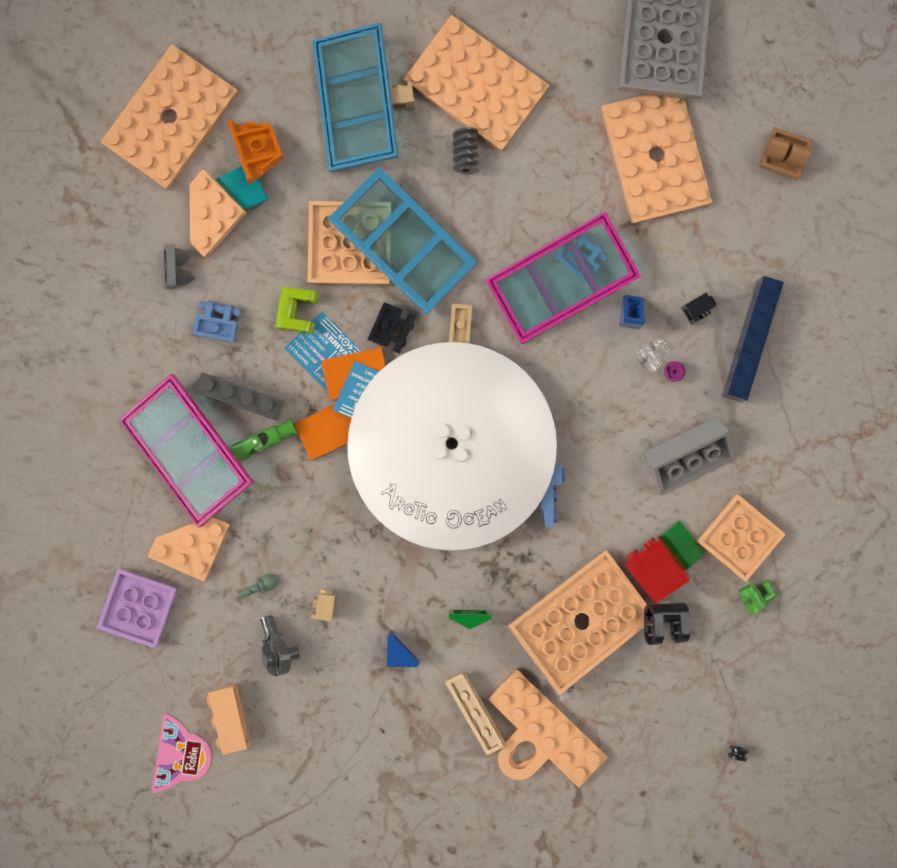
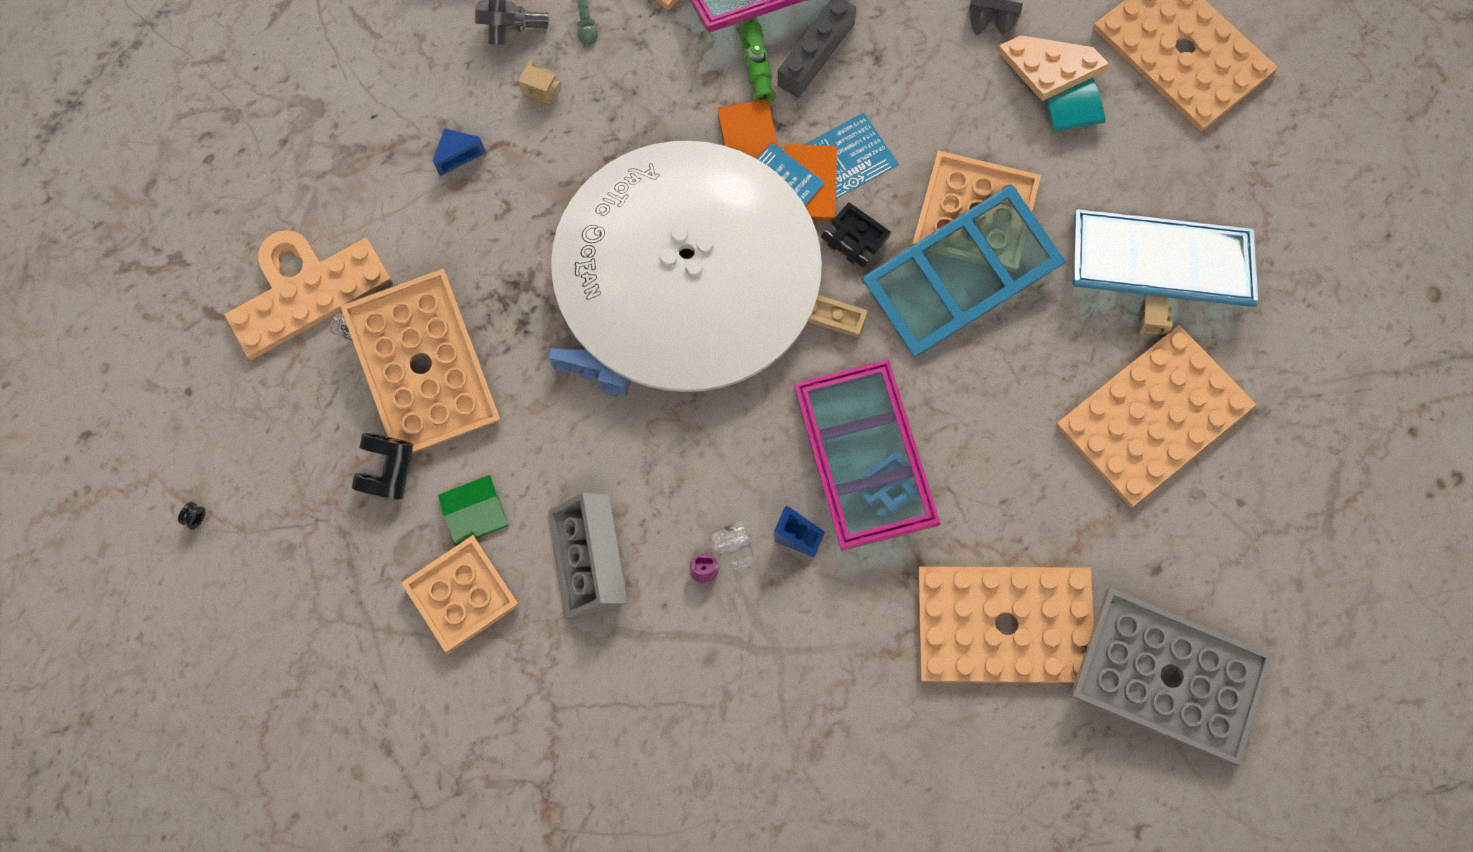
camera: 105 degrees right, 15 degrees down
(216, 328) = (908, 39): medium blue plate -> none
(256, 148) = (1121, 128): orange wing -> none
(287, 310) = (909, 122): lime connector -> none
(464, 149) = (1066, 374): dark grey piece -> none
(470, 618) = (471, 230): green slope -> none
(475, 713) = (355, 218): tan plate -> none
(657, 569) = (454, 472): red brick -> none
(699, 308) = (780, 621): black brick -> none
(752, 339) = (717, 680): dark blue brick -> none
(753, 598) = (376, 588): bright green piece -> none
(786, 153) = (968, 803): medium nougat plate -> none

